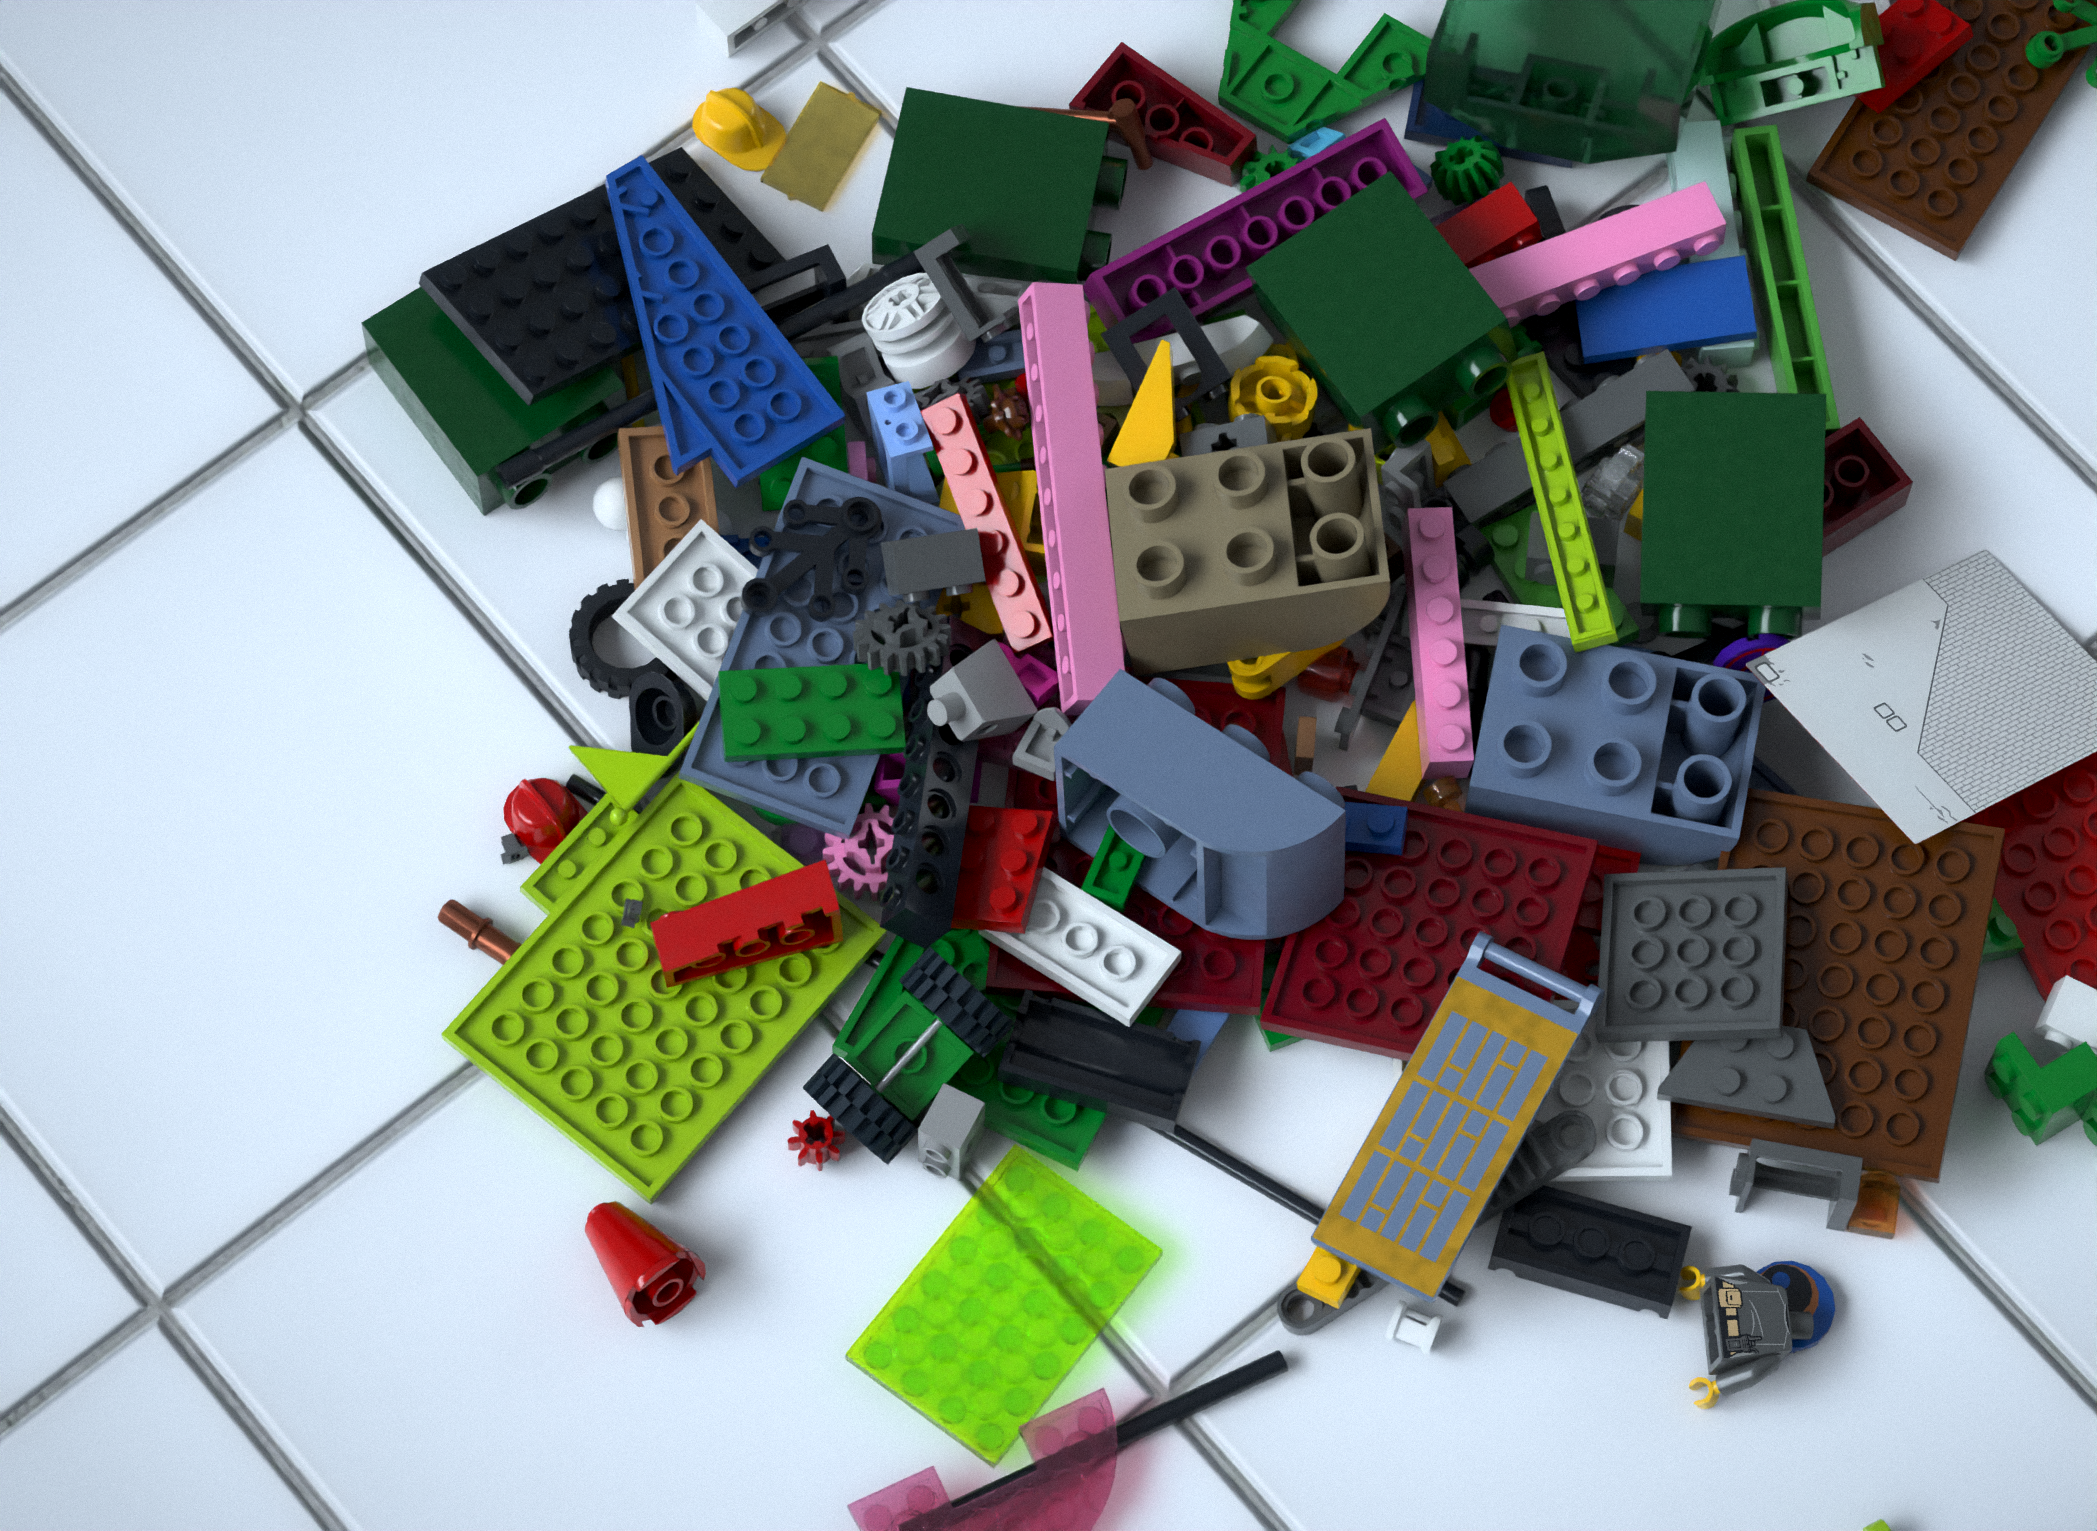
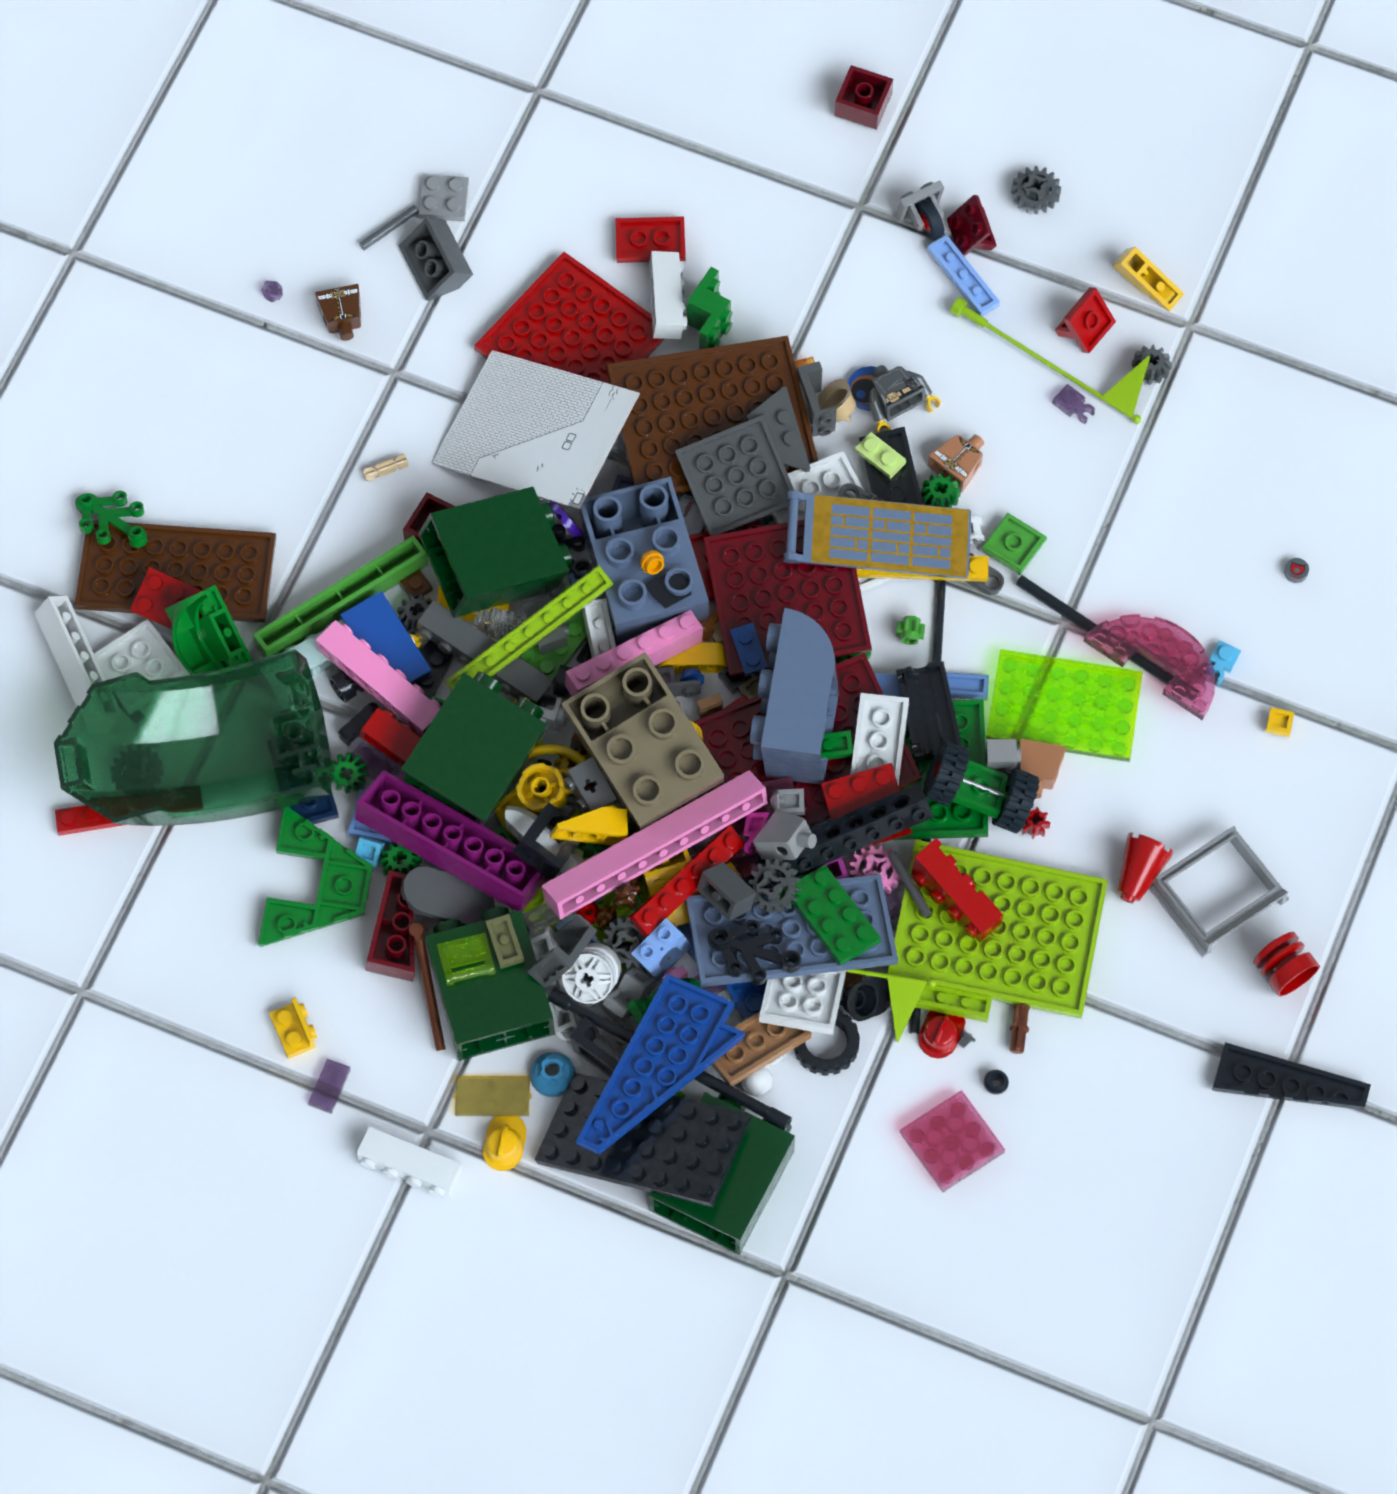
camera: 115 degrees left, 0 degrees up
(171, 1268) = (1272, 1077): none -> black wing
(330, 1390) = (1284, 962): none -> red wheel
(355, 737) = (952, 1141): none -> clear pink plate
(414, 842) = (996, 1075): none -> black plate
(535, 1457) = (1184, 918): none -> light grey piece
(631, 913) = (974, 955): dark grey piece -> none
(790, 245) = (551, 1085): none -> dark azure piece
(838, 874) = (909, 884): none -> dark grey piece
(914, 1200) = (1042, 761): none -> nougat torso
(1030, 215) = (504, 941): none -> olive plate
(1047, 157) = (464, 952): none -> clear neon green plate
(1131, 1168) = (968, 685): none -> medium blue tile
(1181, 181) = (443, 896): none -> dark grey tile
(1275, 1123) = (910, 630): none -> bright green gear
(1355, 1384) = (1013, 543): none -> bright green plate
(1367, 743) = (692, 674): none -> blue plate
(1500, 1319) = (940, 491): none -> green gear
(1520, 744) = (661, 594): none -> black sticker
(1564, 1374) = (958, 459): none -> nougat torso
(1579, 713) = (652, 562): none -> light orange plate
(1633, 1236) = (880, 455): none -> yellowish green plate
(1780, 1226) = (839, 395): none -> tan piece
(2007, 471) = (385, 467): none -> tan axle

